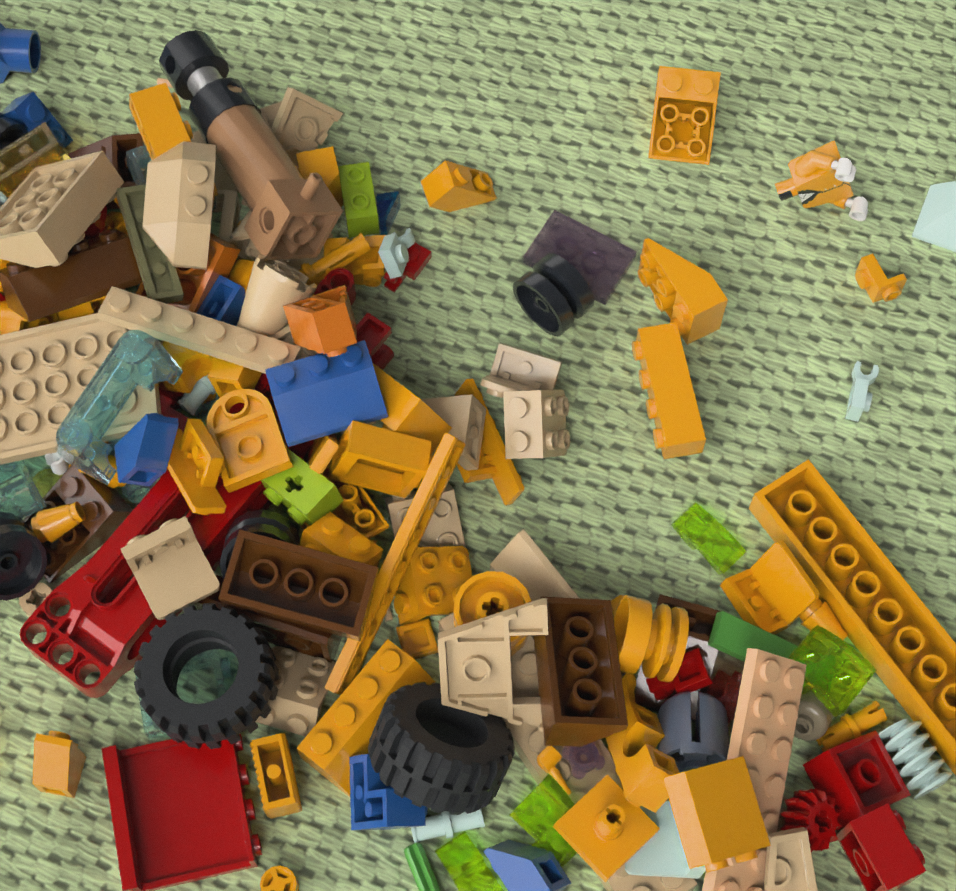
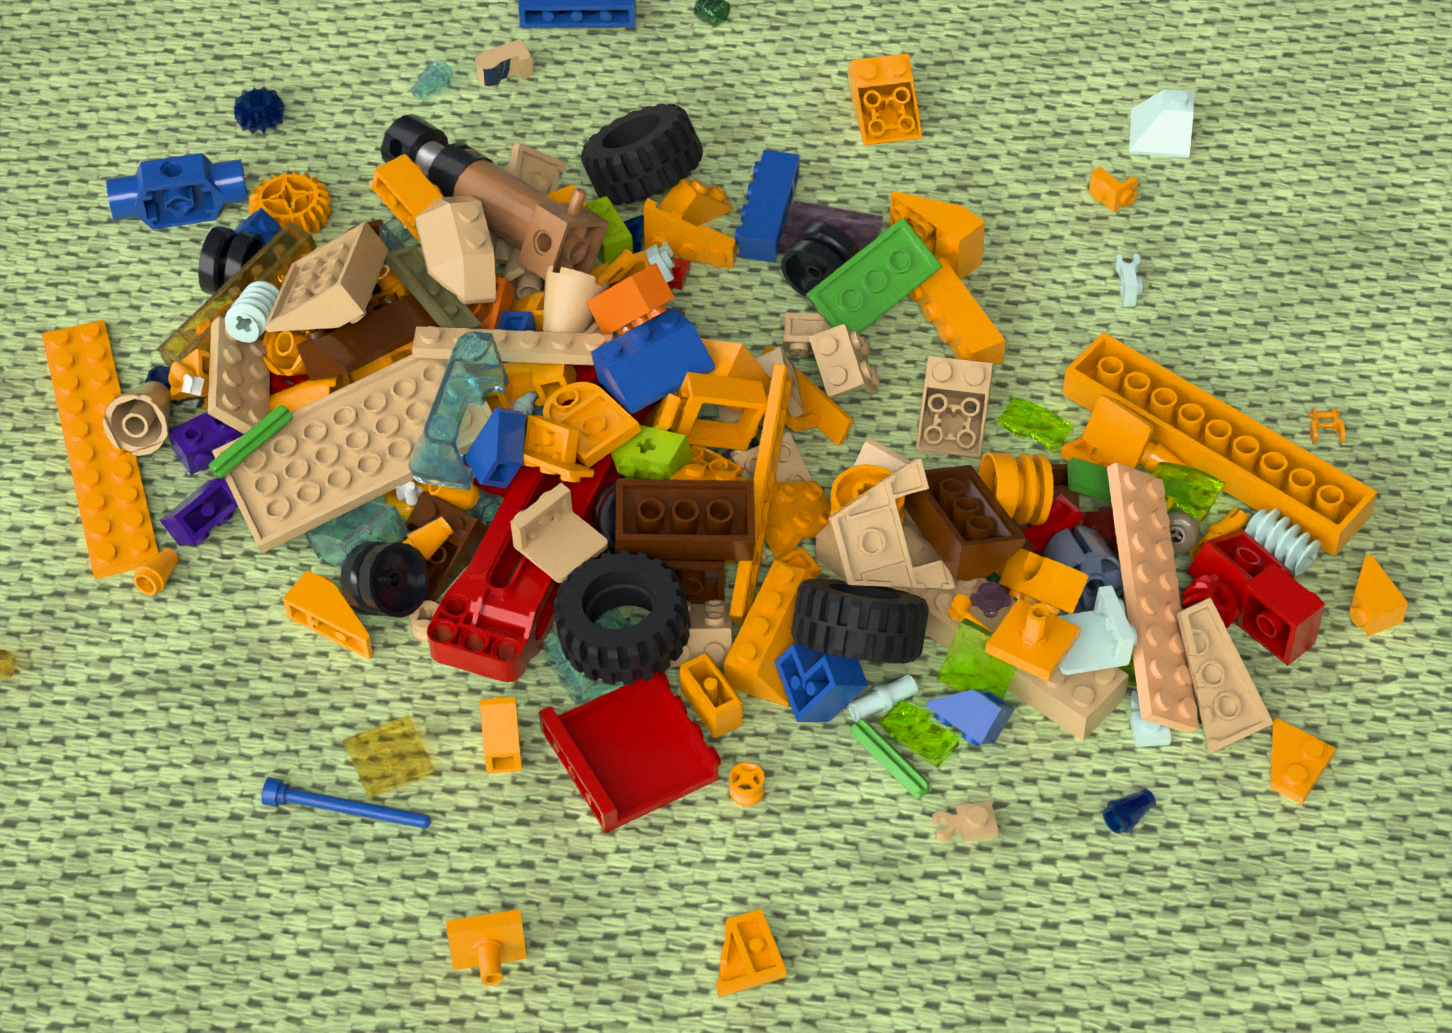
camera: 15 degrees left, 15 degrees down
(81, 96) = (305, 195): none -> light orange gear
(415, 125) = (642, 153): none -> black tyre
(433, 232) = (687, 240): none -> light orange wing
(526, 210) = (768, 205): none -> blue brick
(595, 335) = (874, 279): none -> bright green tile
(632, 498) = (954, 406): none -> tan slope
(717, 814) = (1127, 588): light orange brick -> none
(822, 179) = (1033, 119): light orange torso -> none

